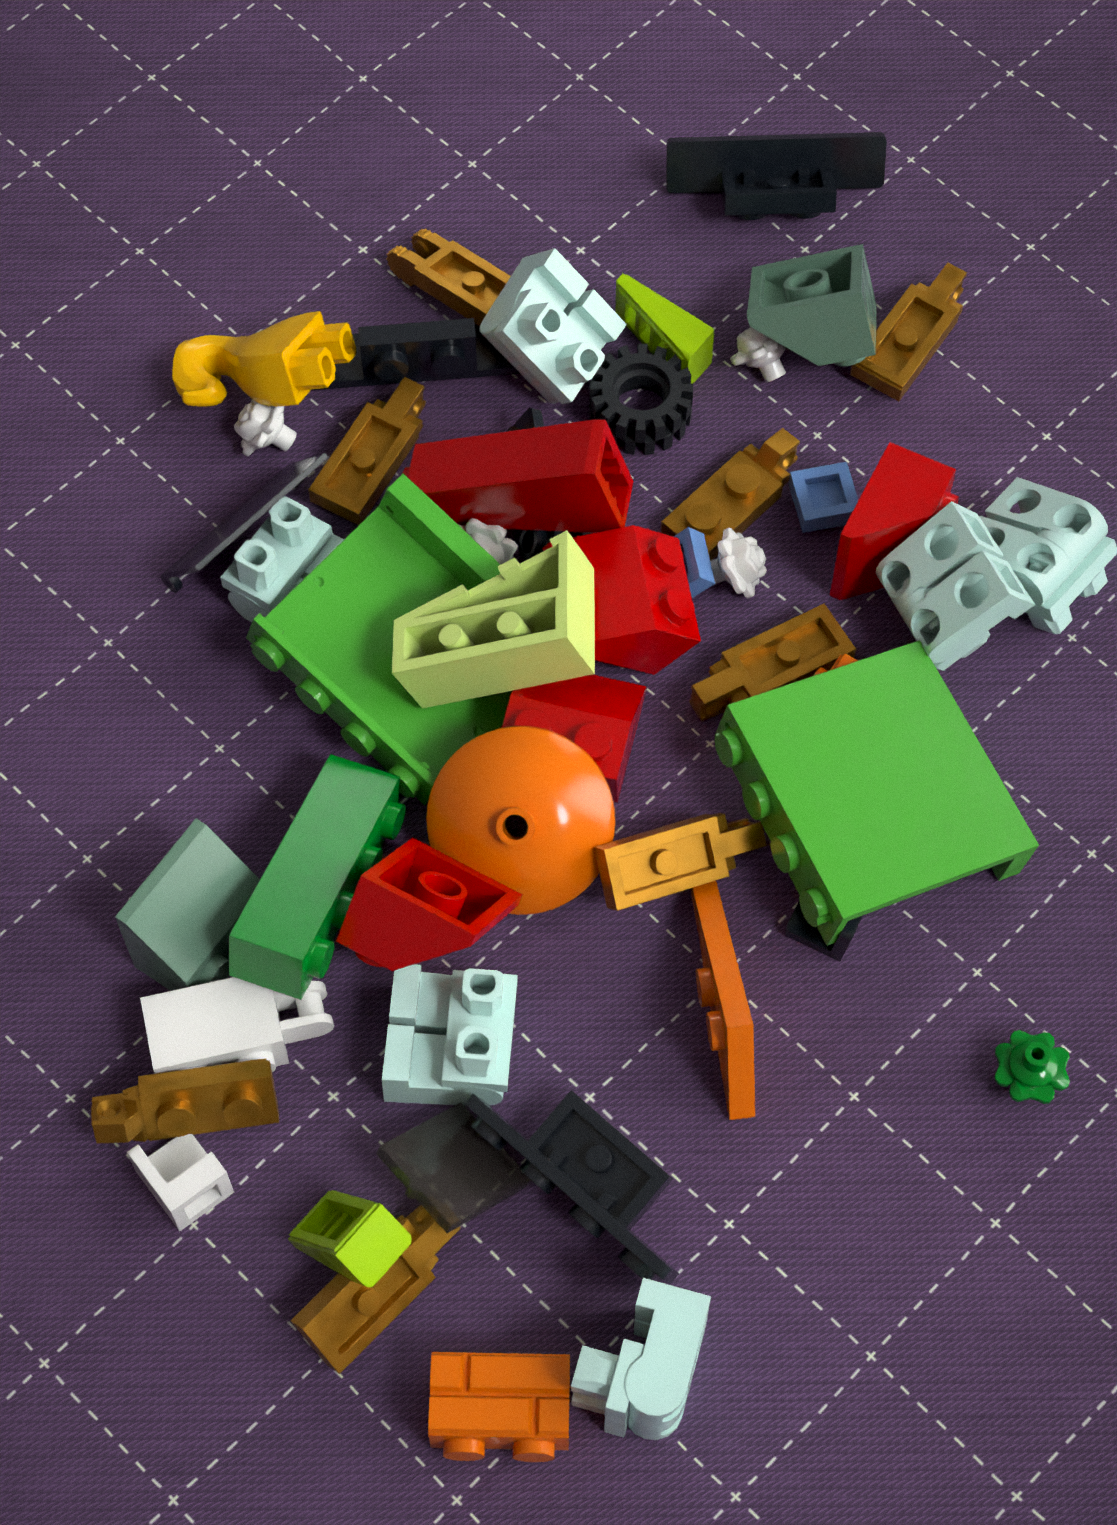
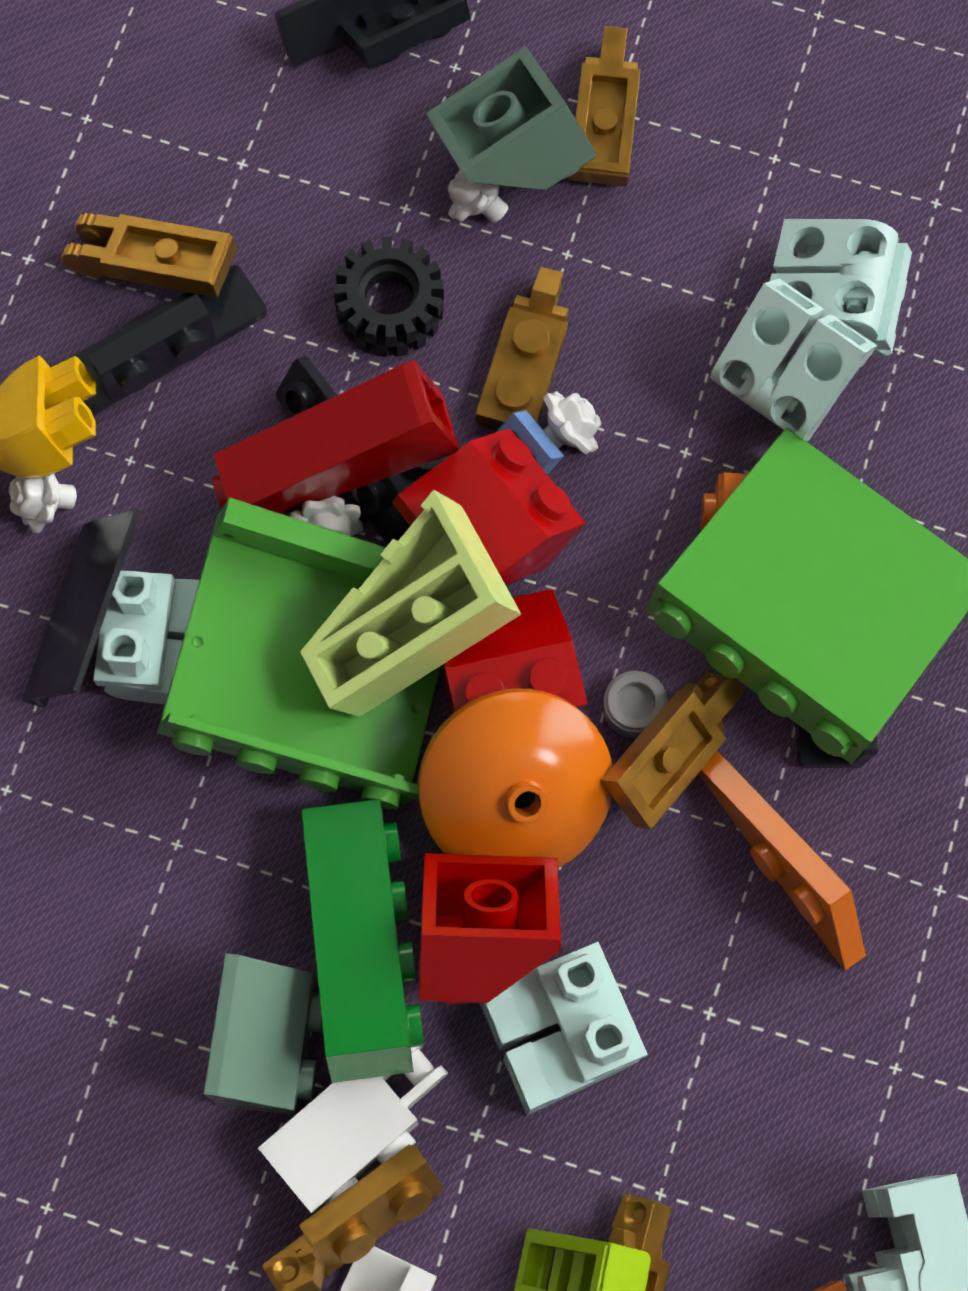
camera: 30 degrees left, 10 degrees up
(370, 454) = (161, 473): pearl gold hinge -> none
(452, 1168) = (634, 1154): clear smoke piece -> none
(551, 326) = (272, 265): light aqua hips -> none
(592, 1166) = (758, 1088): black bracket -> none
(664, 325) = (371, 211): lime slope -> none
(665, 805) = (633, 702): none -> light grey tile
(772, 661) = (656, 507): pearl gold hinge -> none
(823, 496) = (613, 317): medium blue plate -> none
(894, 504) = (699, 311): red slope -> none

